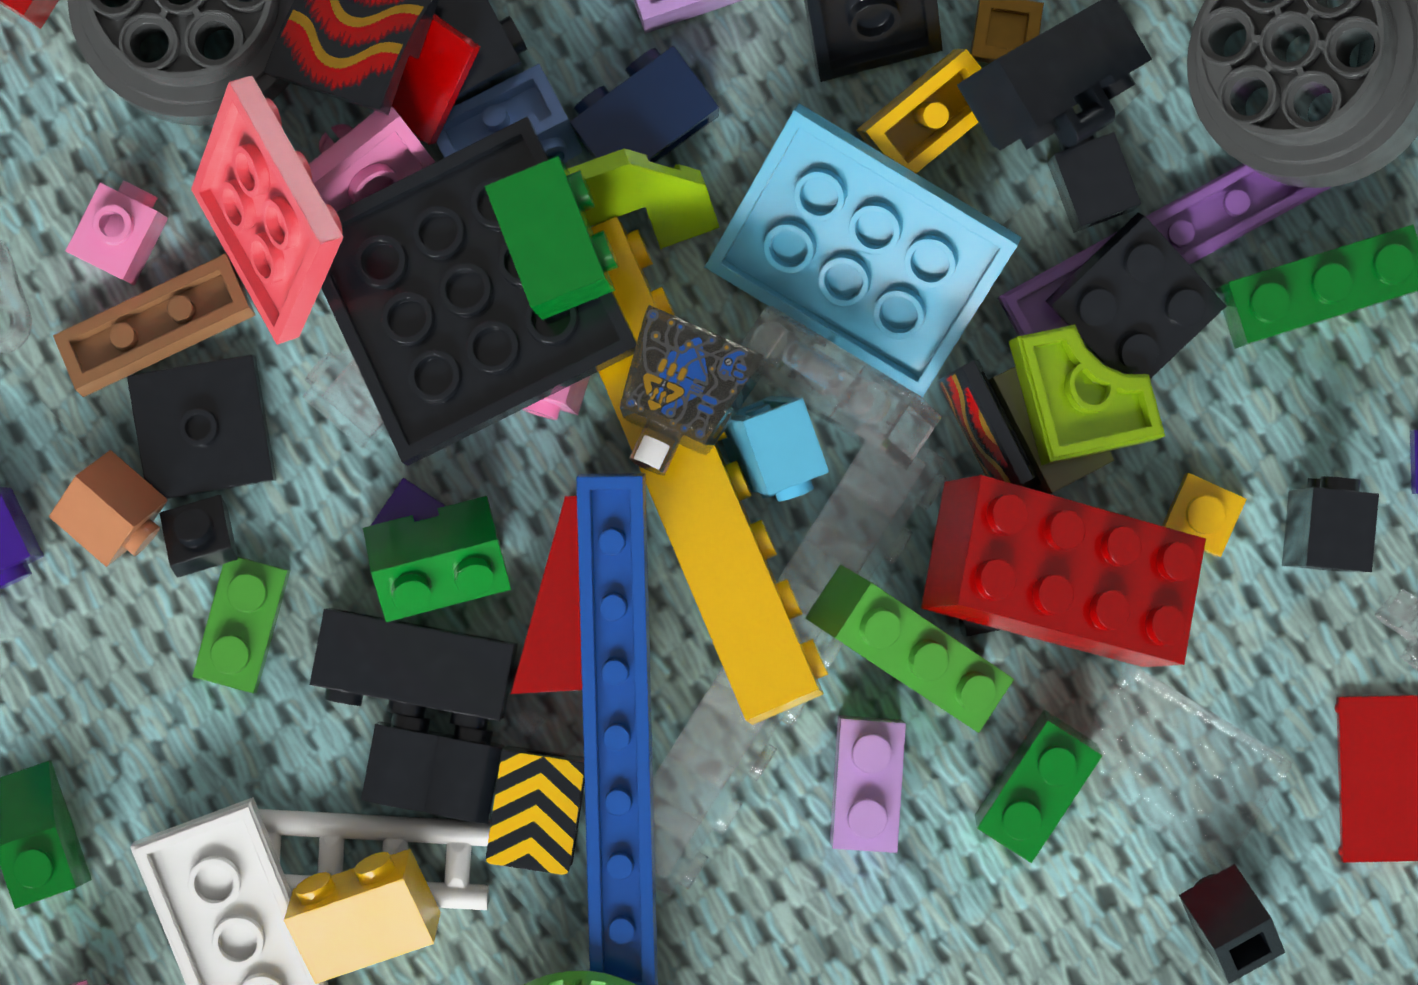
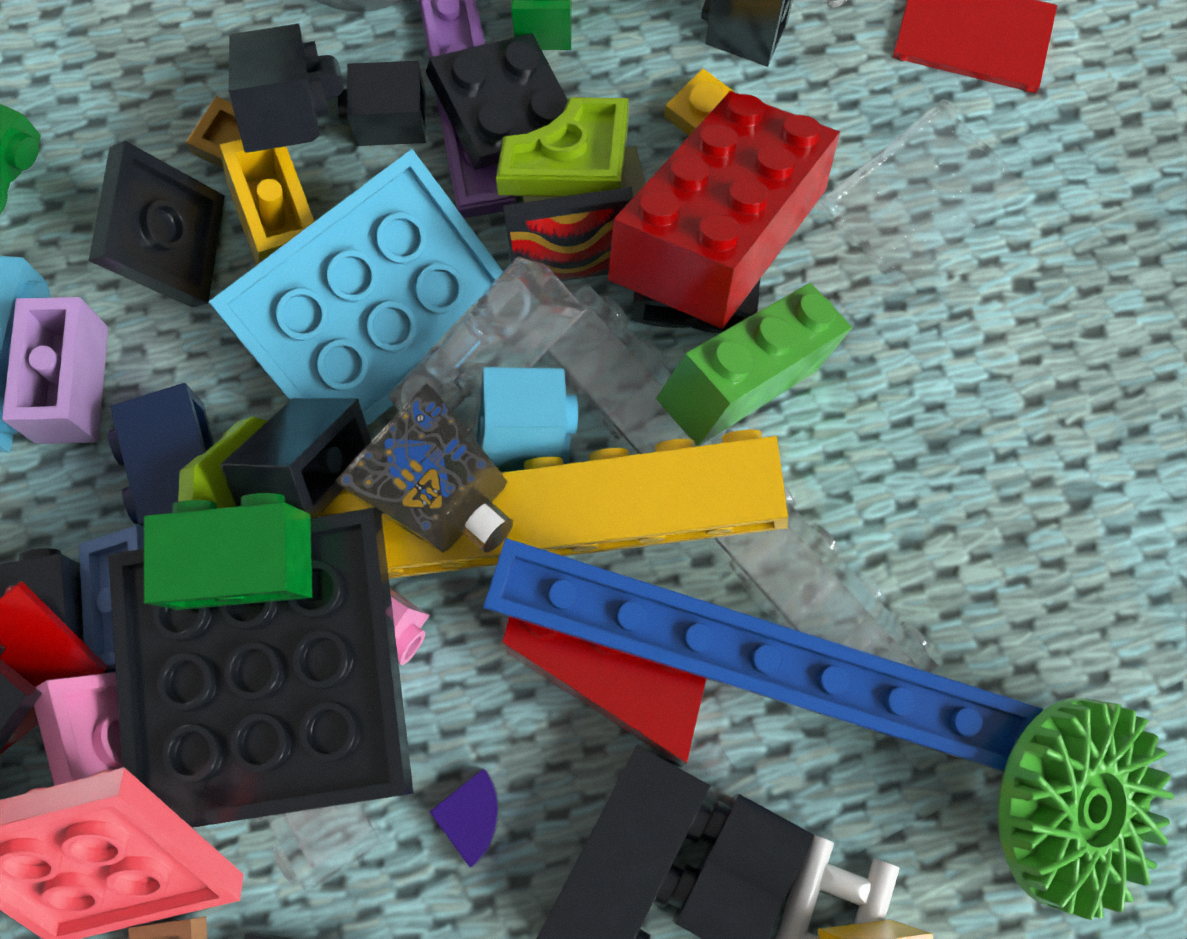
camera: 75 degrees left, 15 degrees down
(436, 559) = (523, 799): green brick -> none
(536, 810) = (815, 777): piece -> none
(675, 251) = (300, 453): none -> black brick
(867, 784) = (872, 448): lavender brick -> none
(1037, 786) = (913, 297): green brick -> none
(1232, 923) = (1079, 174): black brick -> none

